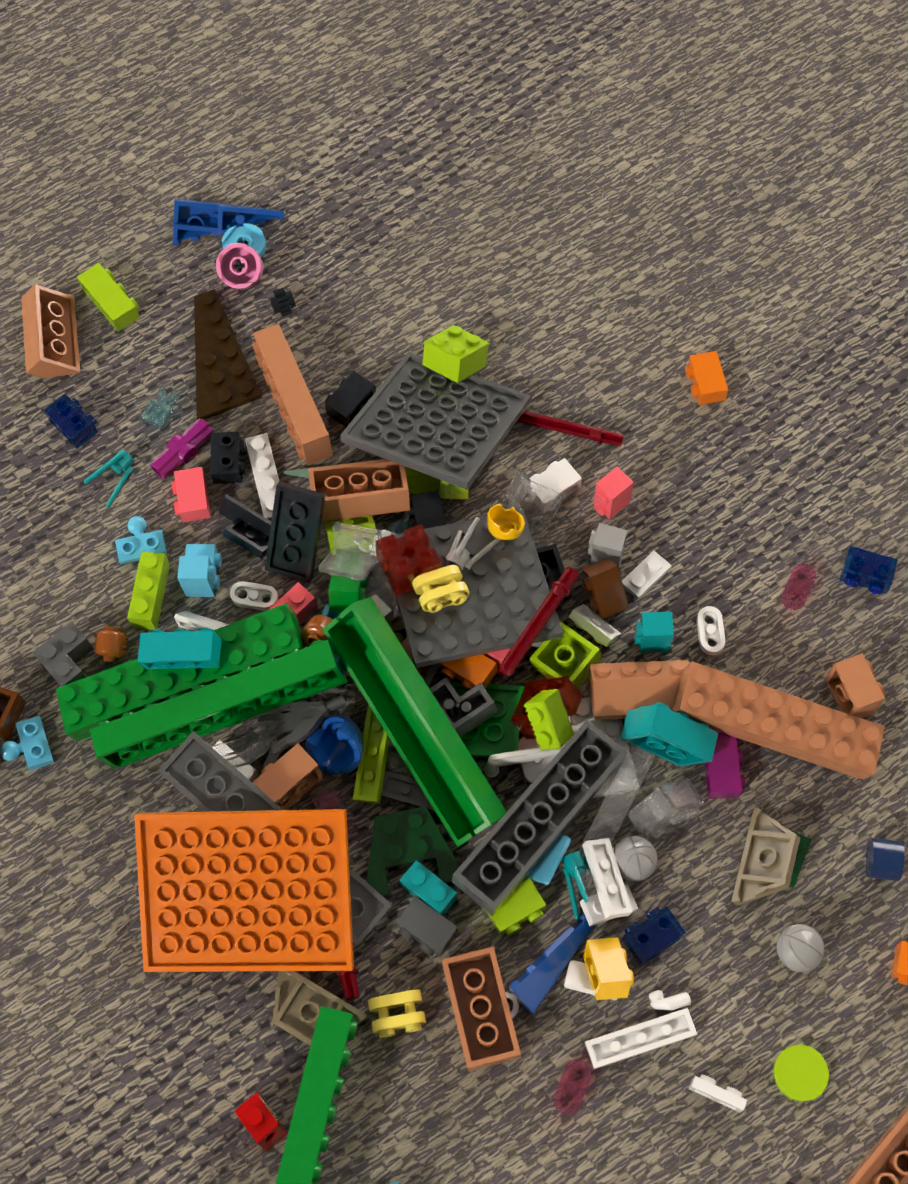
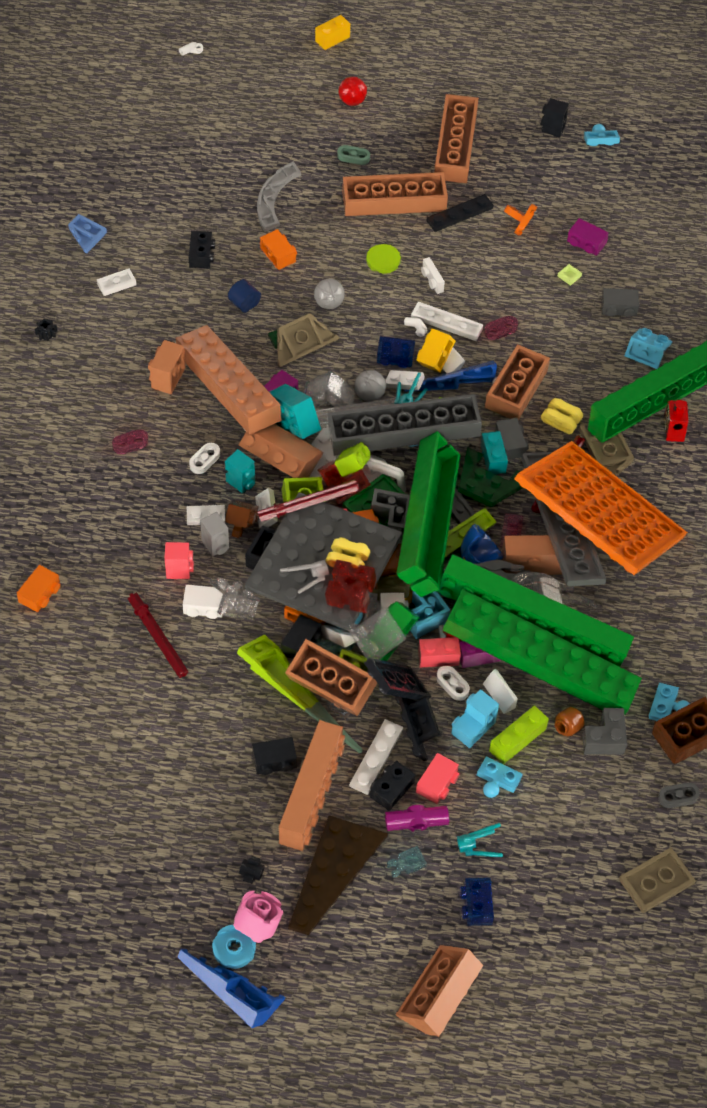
camera: 145 degrees left, 10 degrees down
(109, 296) = (371, 983): lime brick -> none
(179, 649) = (536, 644): teal brick -> none
(313, 629) = (439, 601): dark orange head -> none
(435, 422) = (237, 685): dark grey plate -> none
(455, 353) = (178, 722): lime brick -> none
(505, 523) = (269, 569): yellow hair -> none
(607, 878) = (395, 381): white plate -> none
(868, 570) = (84, 418): clear blue brick -> none

